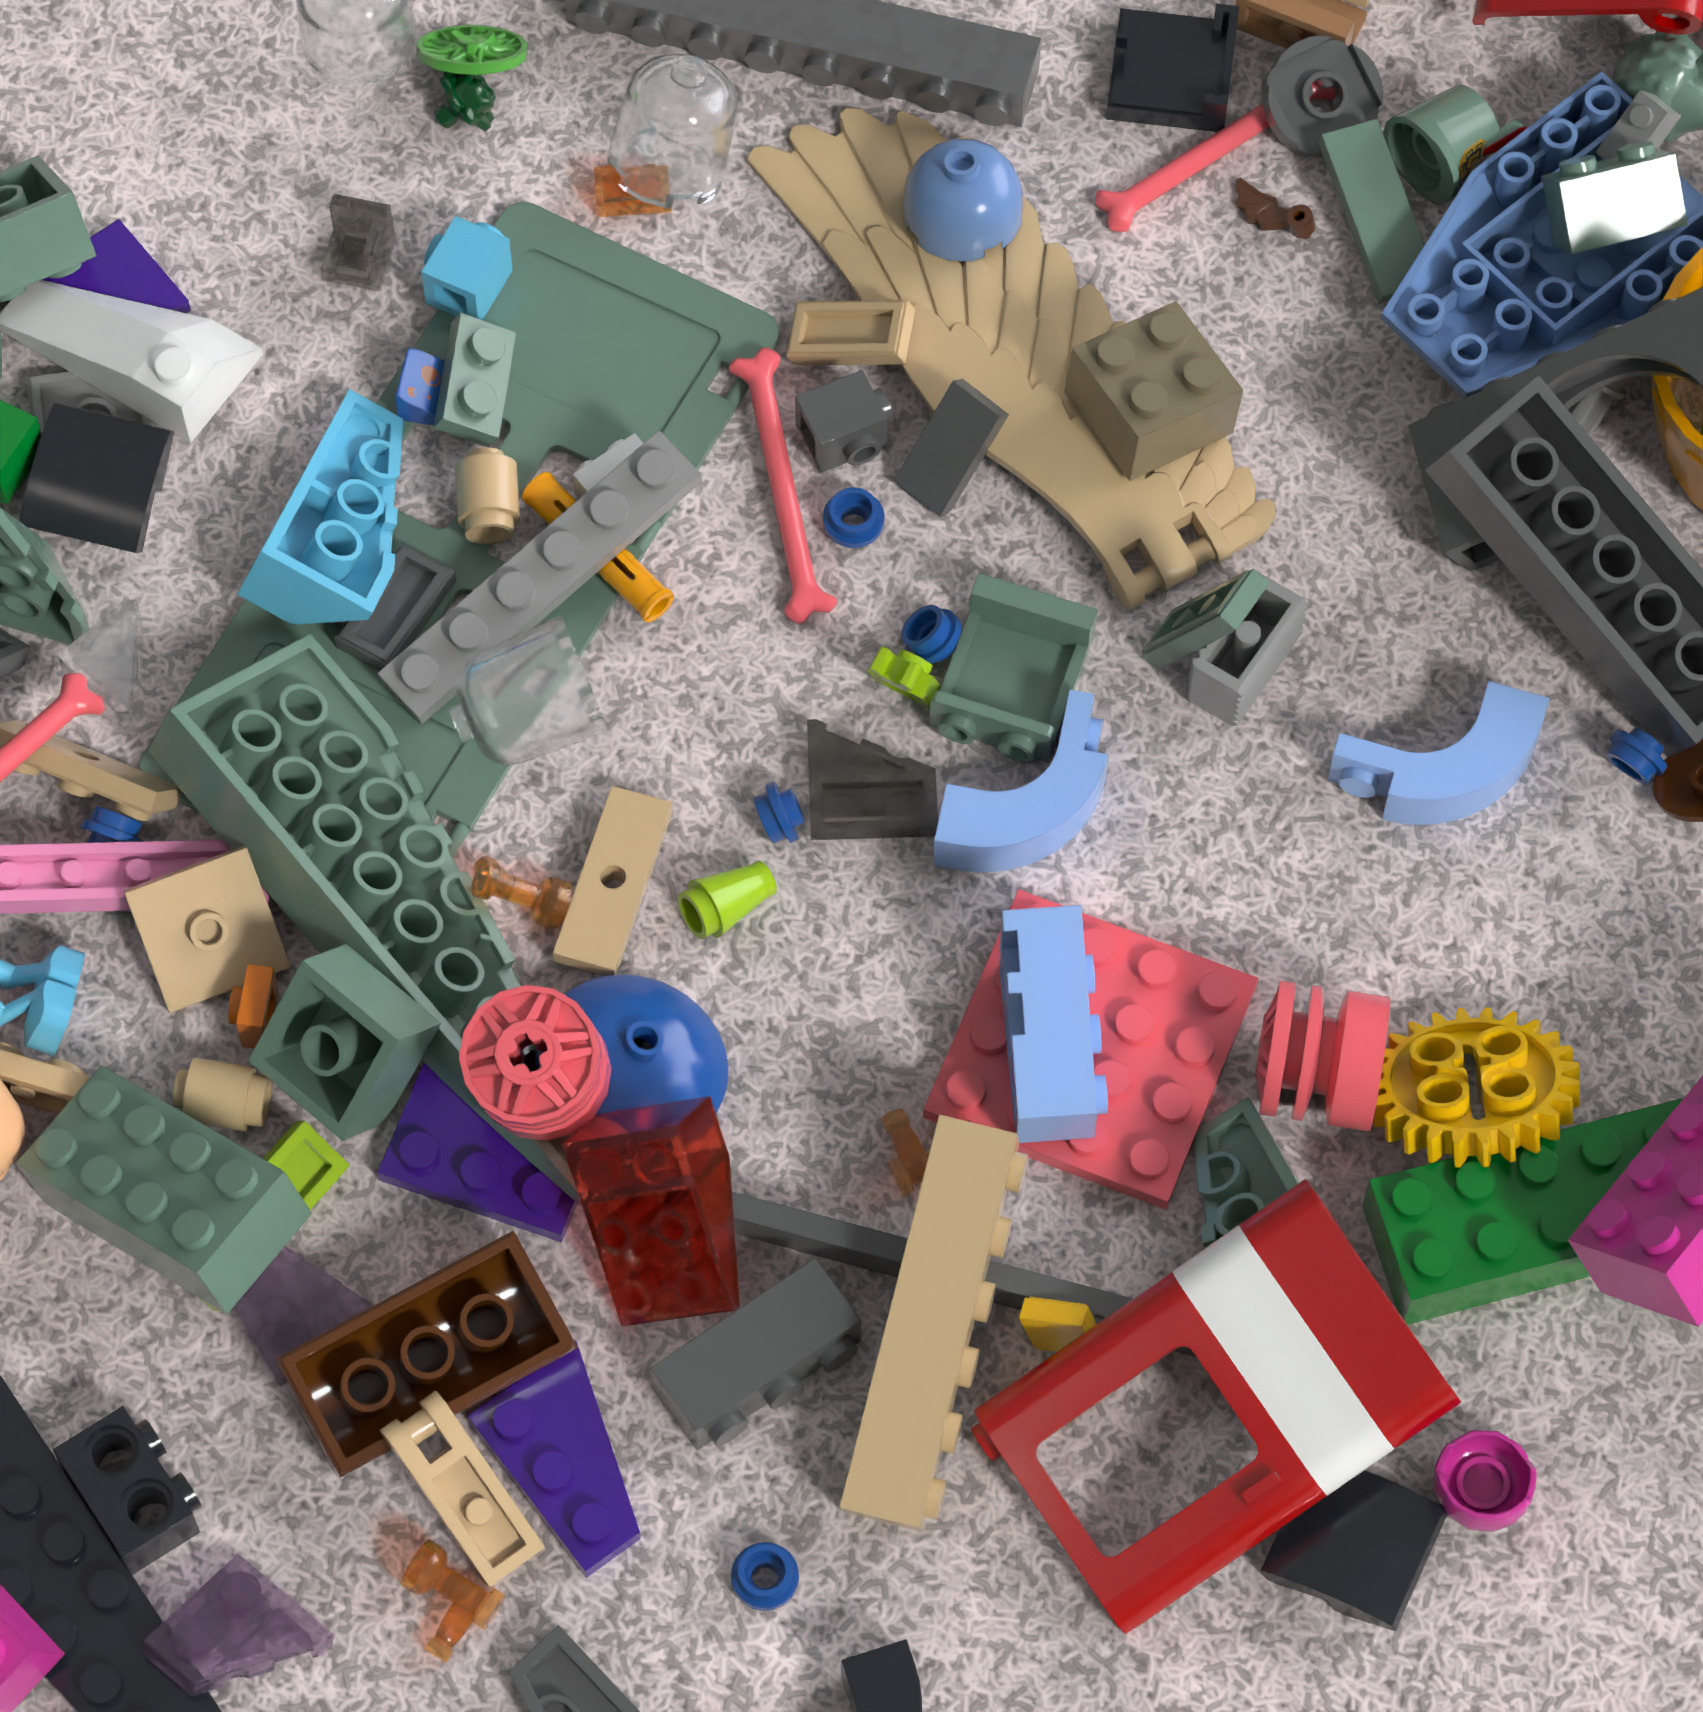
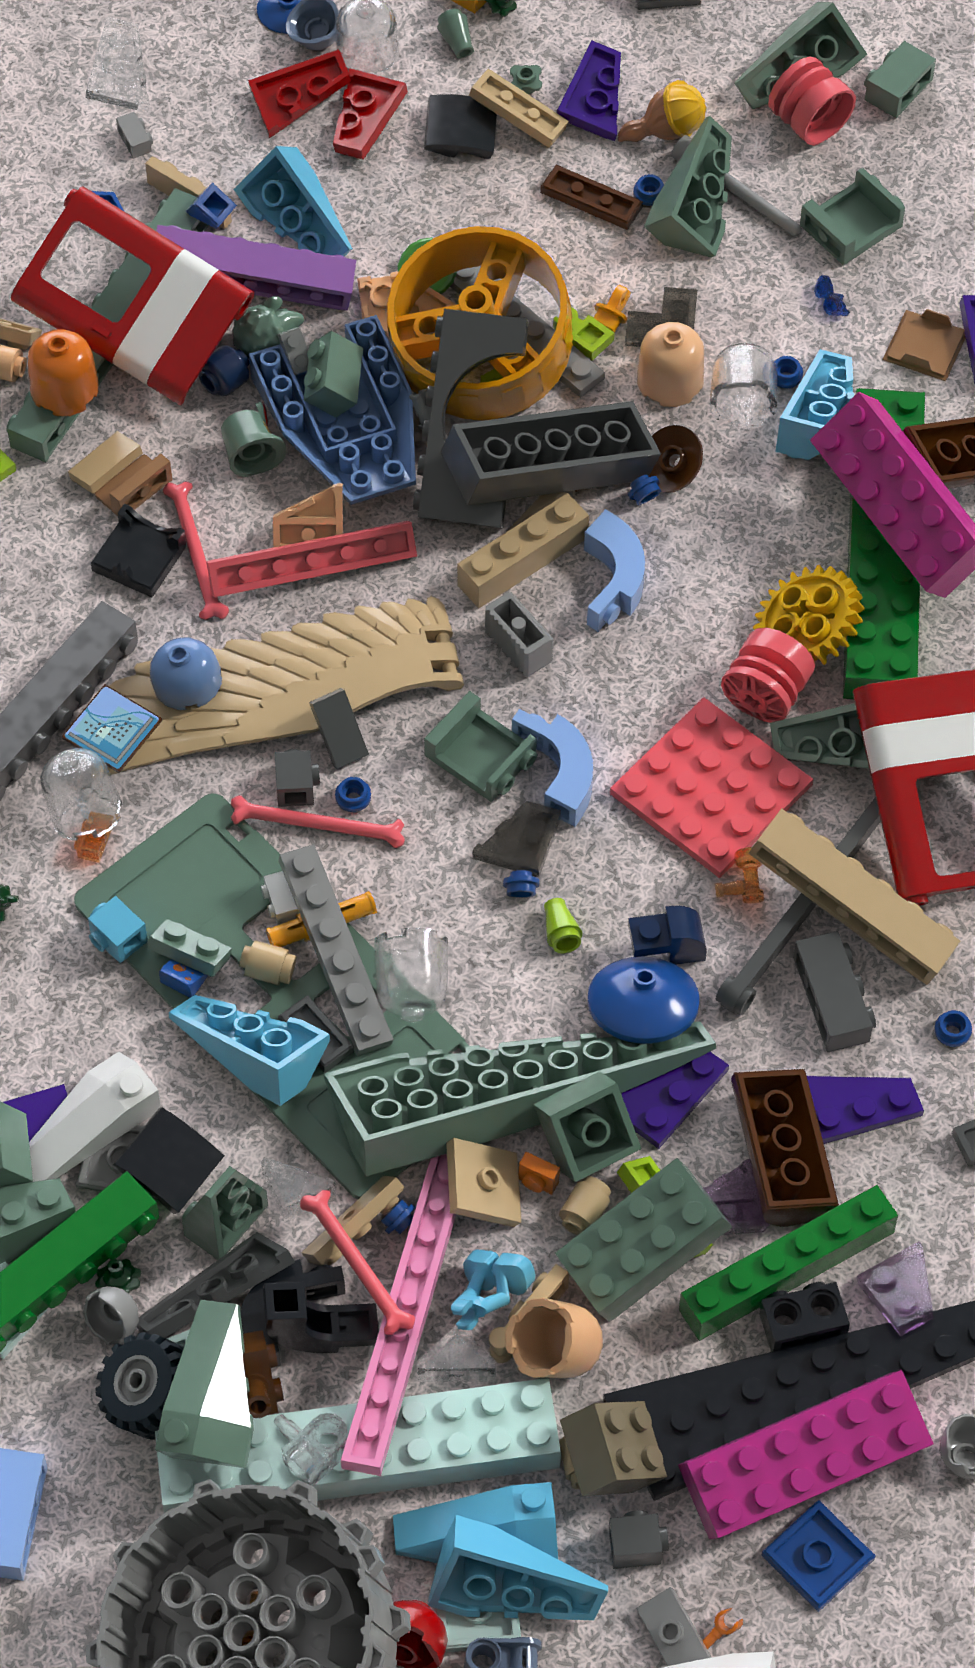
camera: 70 degrees left, 5 degrees down
(219, 1434) = (788, 1262): none -> green brick
(359, 243) = (69, 982): clear smoke panel -> none
(464, 1491) = (865, 1148): tan plate -> none
(469, 1604) = (898, 1185): clear orange piece -> none
(547, 900) = (529, 1011): clear orange piece -> none
(573, 1062) = (638, 1036): coral wheel -> none
(621, 850) = (513, 964): tan tile -> none
(659, 1209) = (744, 1001): clear red slope -> none
(758, 1061) = (673, 932): none -> dark blue brick
(818, 136) = (112, 727): none -> piece
(850, 332) = (241, 755): tan tile -> none
(904, 674) = (466, 795): lime plate -> none
(931, 633) = (434, 779): blue plate -> none
(1050, 1024) = (709, 787): light blue wedge -> none
(1054, 1322) = (868, 845): yellow tile -> none
(1153, 390) = (356, 616): dark tan brick -> none
(1204, 619) = (504, 639): sand green tile -> none
(1262, 305) = (311, 558): none -> coral plate
(1266, 212) = (251, 541): reddish brown piece -> none
(1327, 282) = (311, 518): none -> light nougat wing
(1332, 64) = (188, 501): dark grey plate -> none
(1373, 203) = (269, 486): sand green tile -> none
(1440, 616) = (537, 538): none -> tan wedge
(1566, 56) = (225, 371): none -> dark blue head

